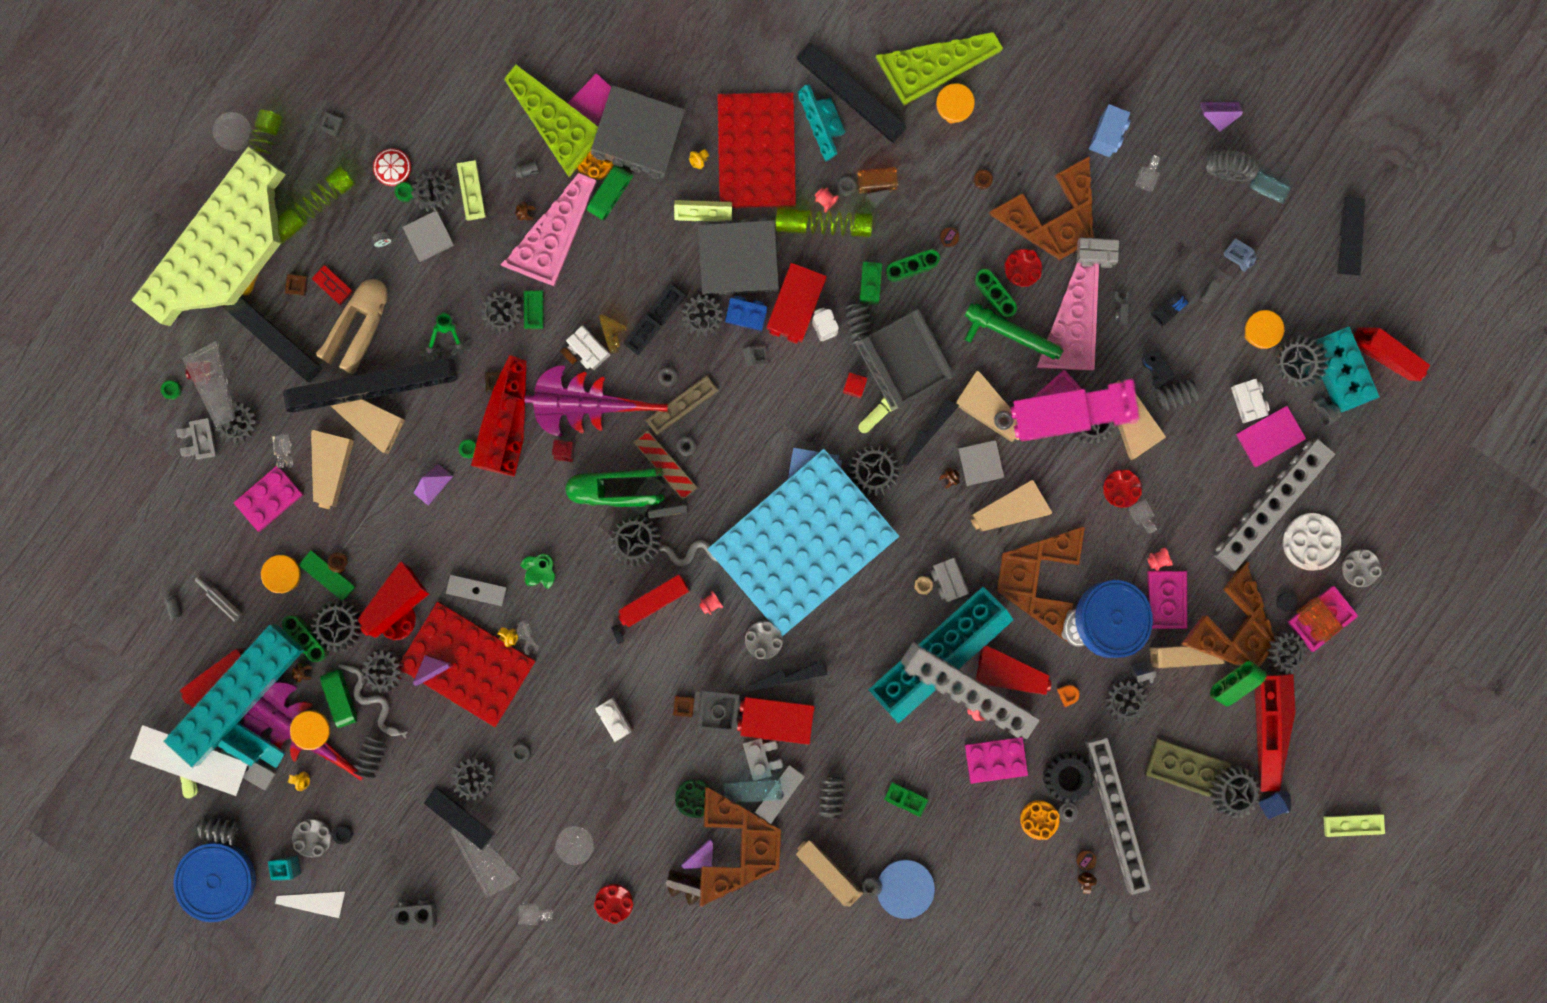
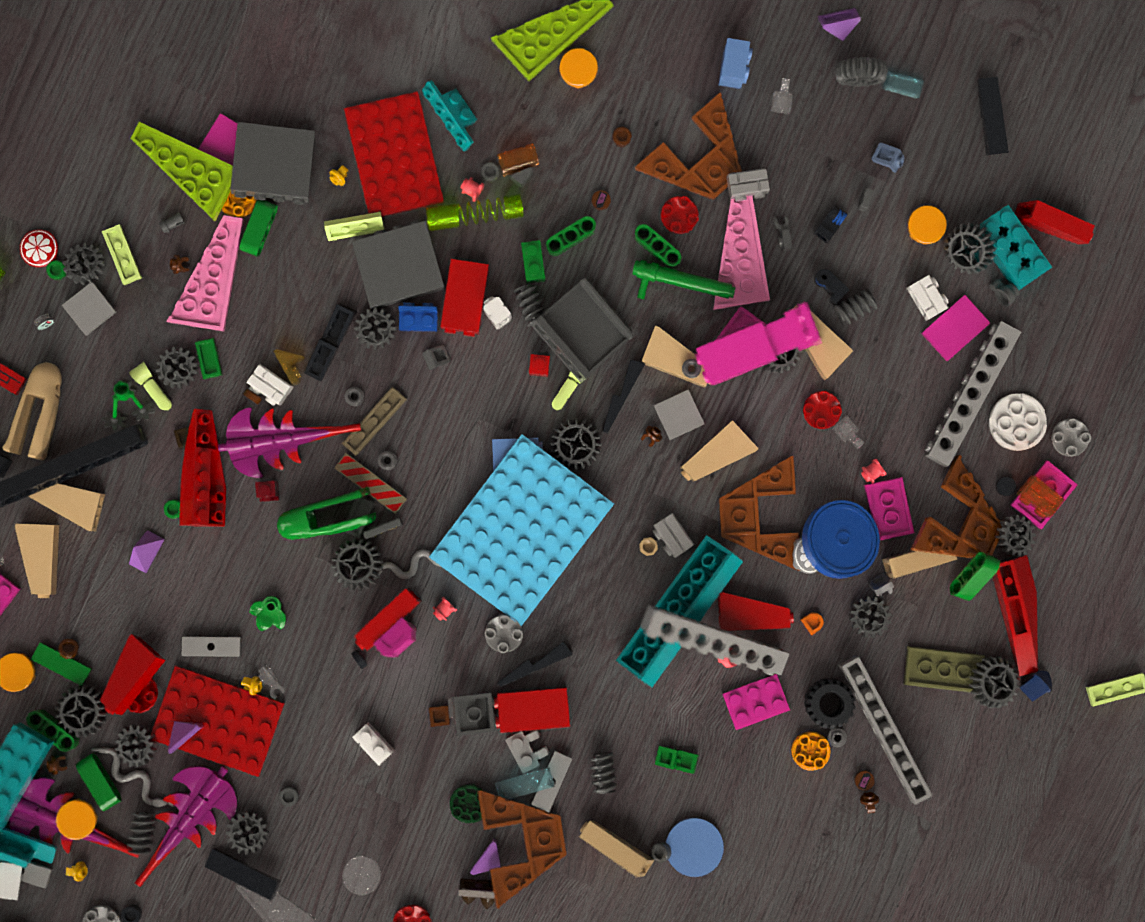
camera: 20 degrees left, 0 degrees up
(442, 731) = (207, 791): none -> magenta animal
(466, 312) = (142, 375): none -> yellowish green piece
(659, 622) = (396, 639): none -> dark pink slope
(851, 92) = (474, 79): black beam -> none

